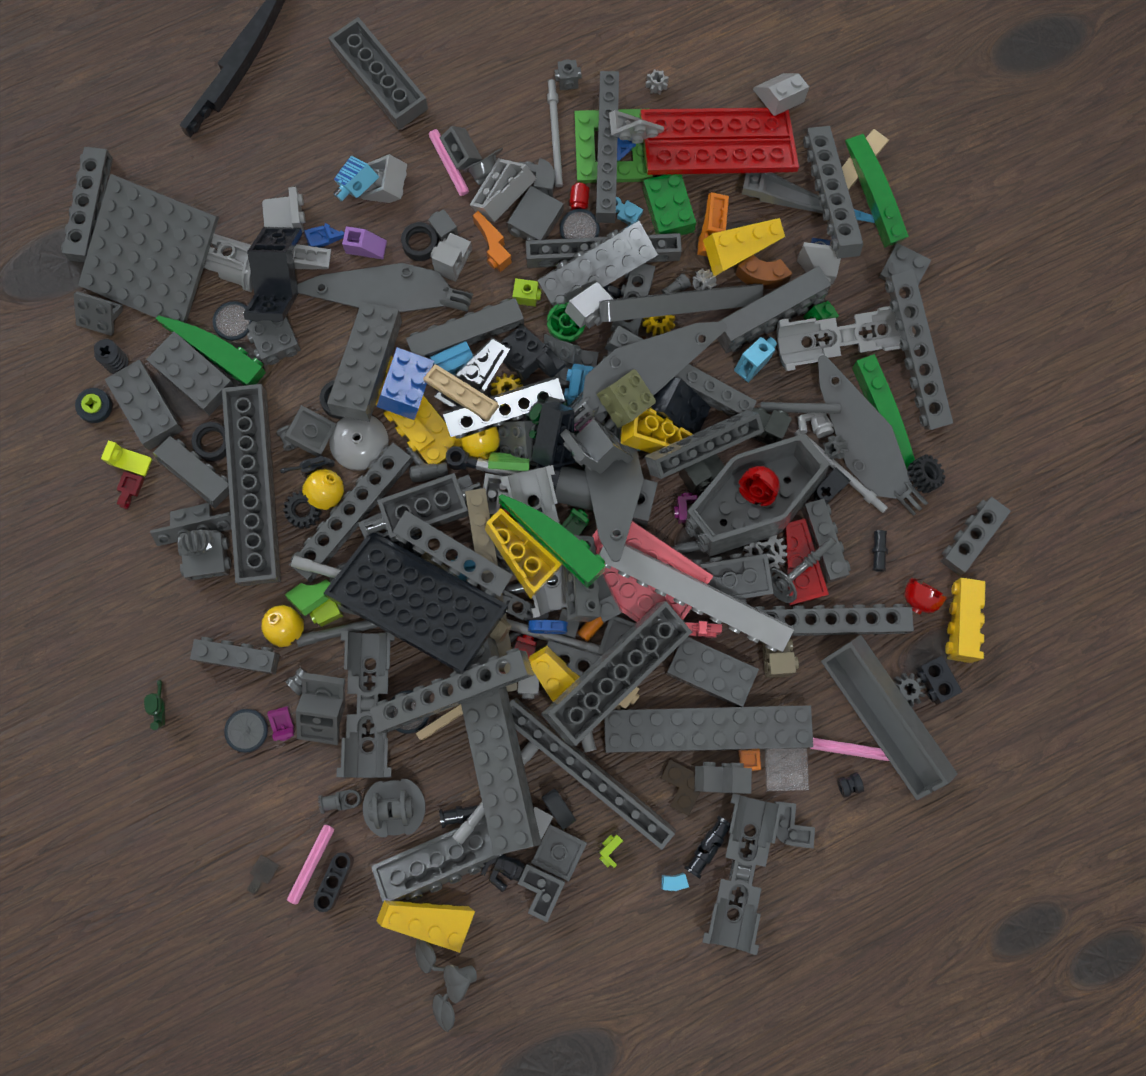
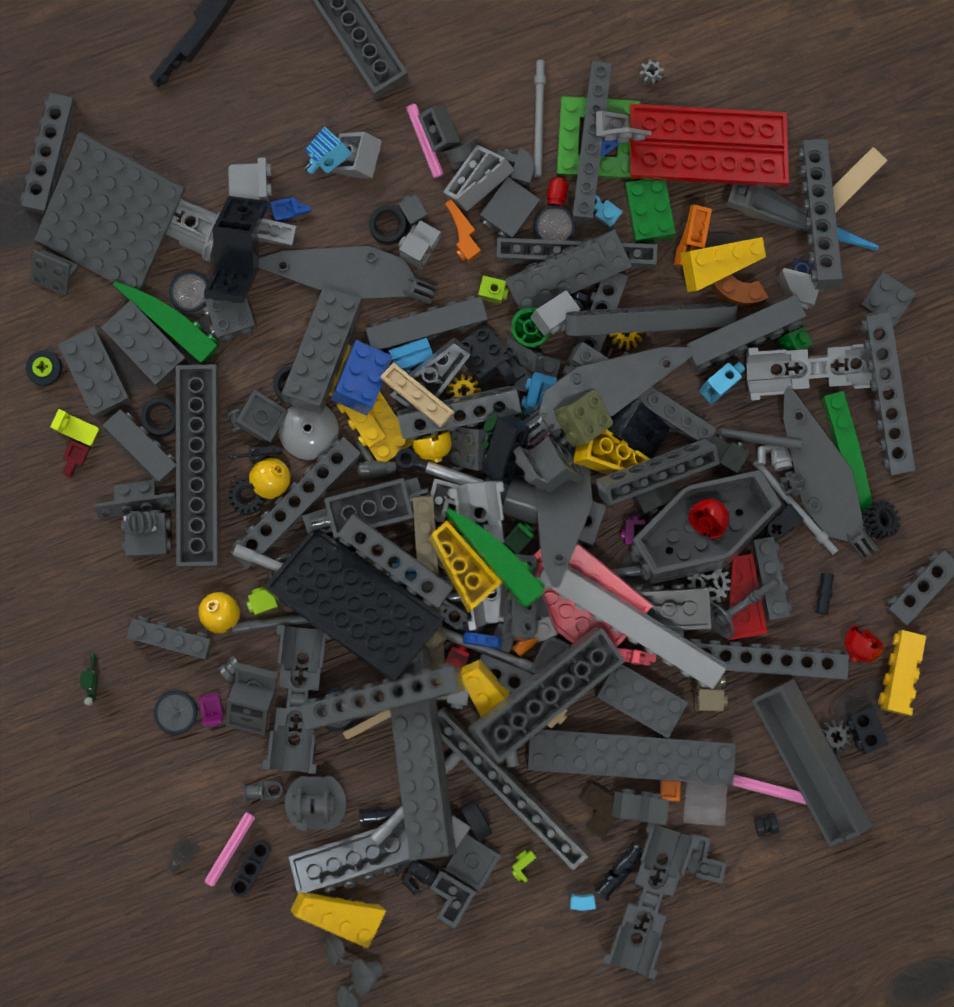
camera: 10 degrees right, 5 degrees up
(110, 356) = (65, 320): black piece -> none
(308, 597) = (247, 586): bright green tile -> none
(363, 243) = (330, 222): medium lavender slope -> none
(506, 461) = (456, 470): bright green tile -> none
(568, 74) = (555, 62): dark grey brick -> none
(679, 284) = (652, 295): dark grey pin -> none
(704, 280) = (677, 295): light grey gear -> none
(782, 92) = (781, 96): light grey slope -> none
(877, 191) = (867, 215): green slope -> none

